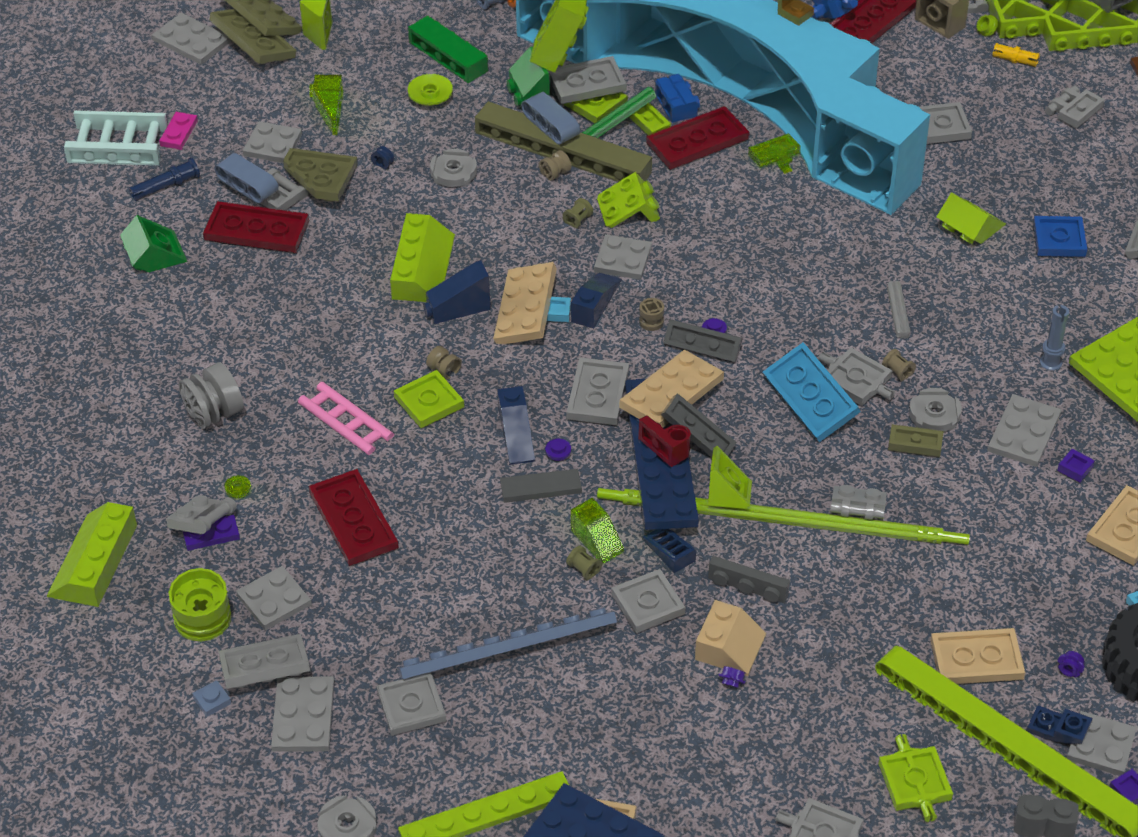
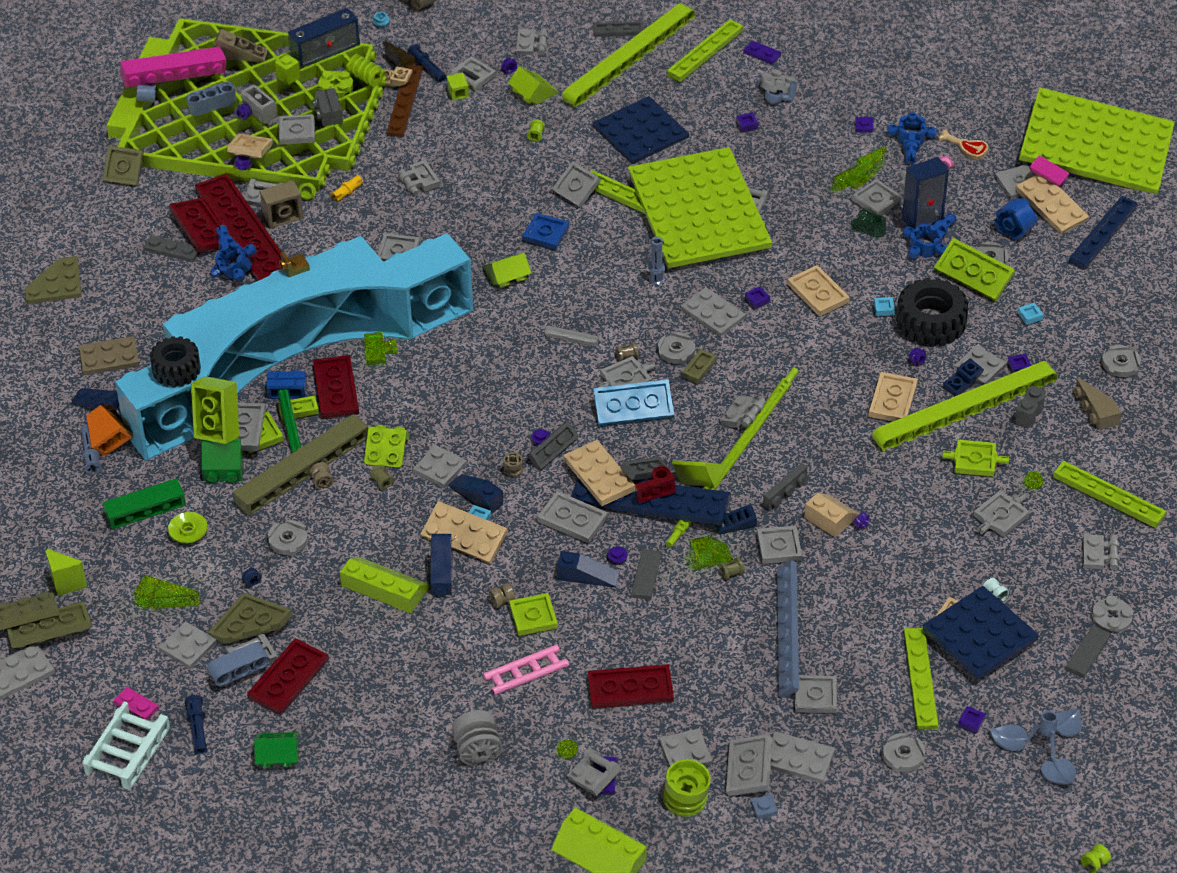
camera: 70 degrees left, 0 degrees up
(550, 118) = (283, 456): sand blue beam -> none

